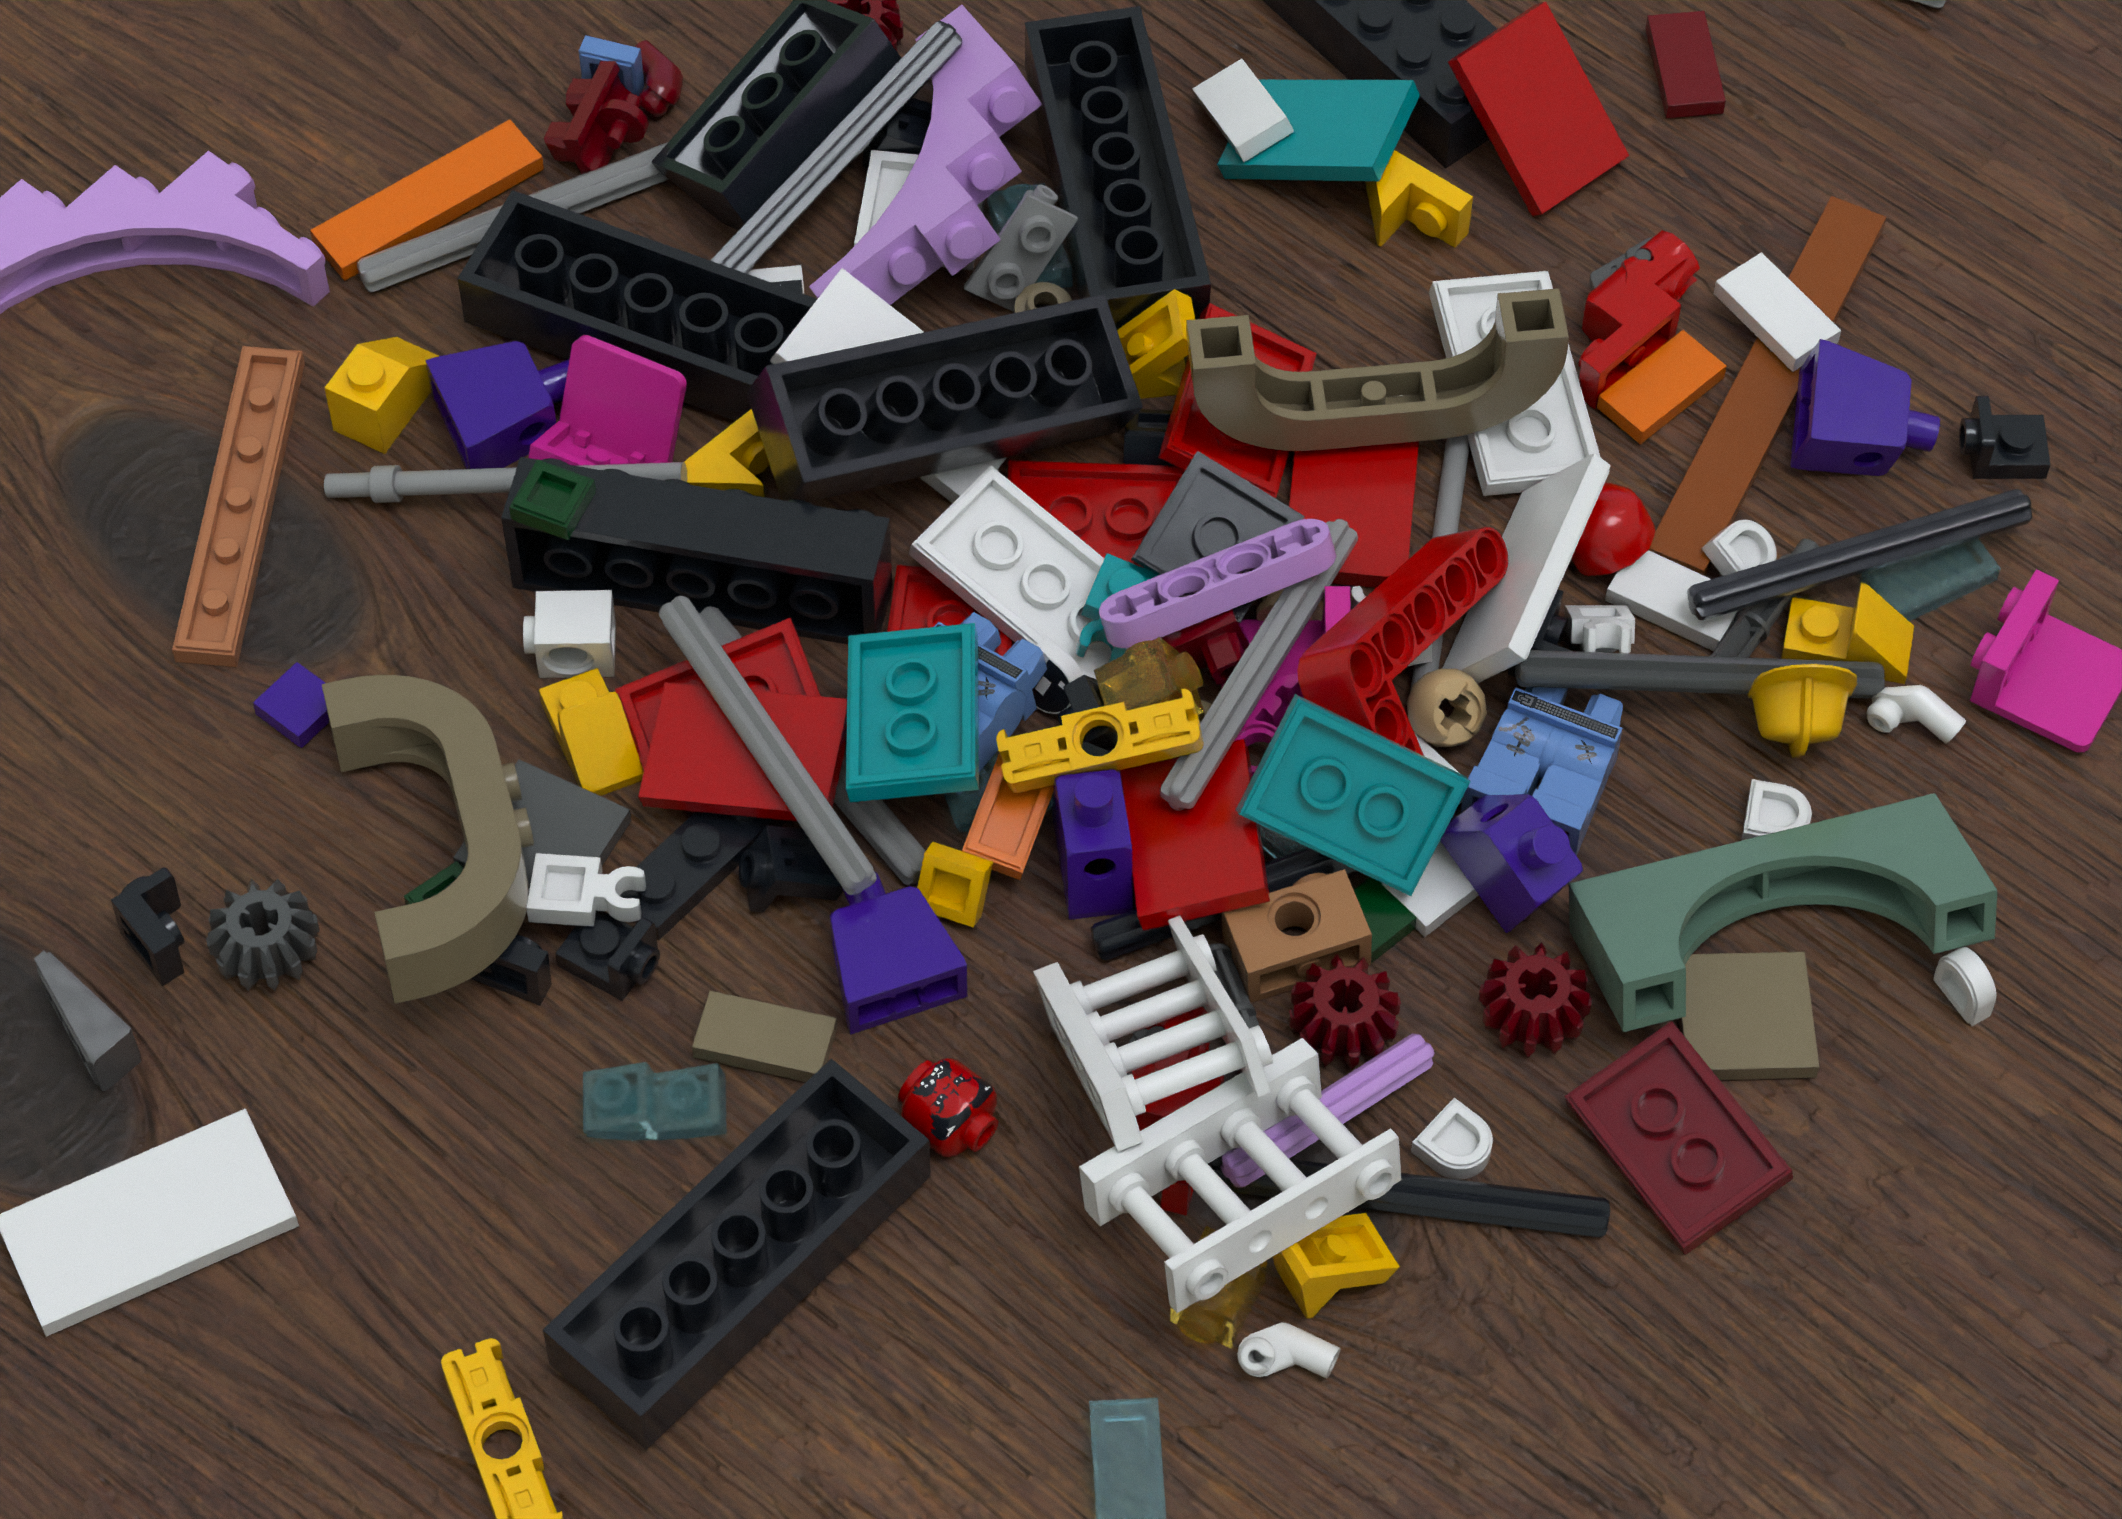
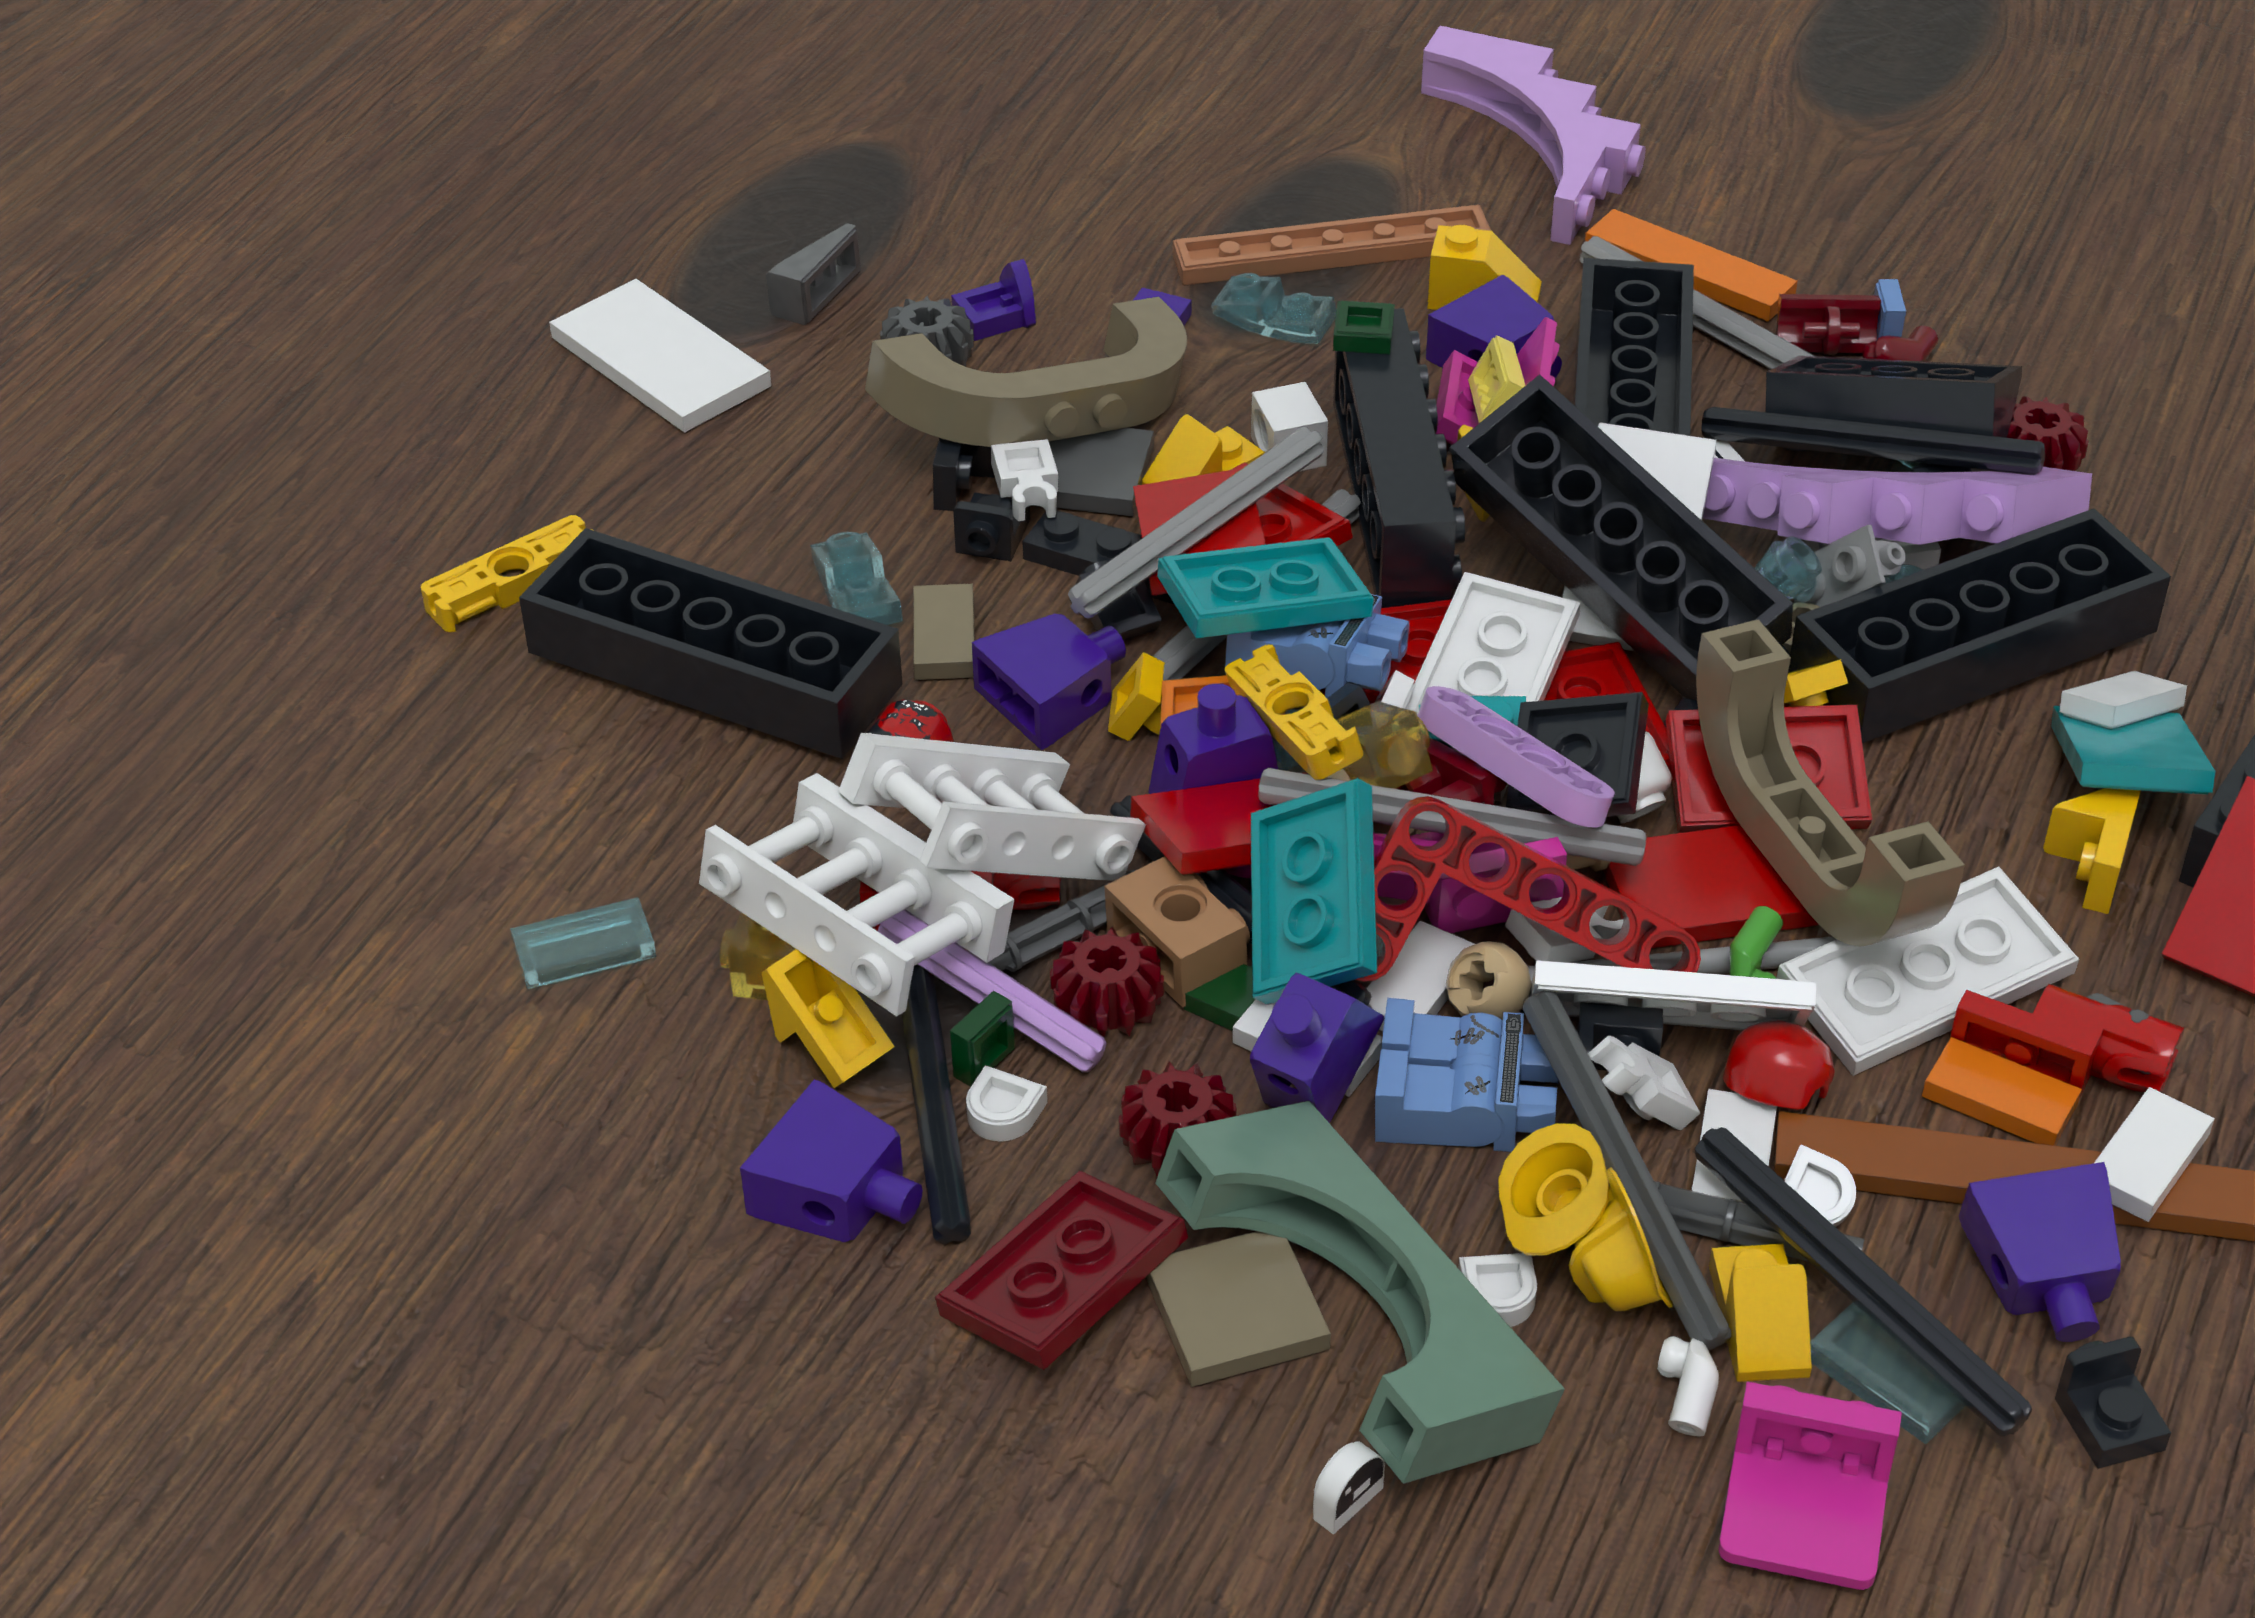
camera: 75 degrees right, 15 degrees down
(146, 923) = (913, 277): black bracket -> none
(210, 850) = (1000, 305): none -> dark purple tile
(349, 587) = (1263, 308): none -> clear light blue slope
(391, 483) = (1439, 388): light grey bar -> none
(636, 423) = (1495, 377): none -> light yellow plate
(1008, 286) = (1790, 566): none -> clear light blue cone
(1284, 1347) = (732, 1018): white arm -> none
(1380, 1114) = (982, 1038): none -> dark green tile
(1466, 499) = (1753, 941): none -> bright green arm
(1513, 1296) = (828, 1169): none -> dark purple torso
(1724, 732) = (1553, 1189): none -> yellow piece

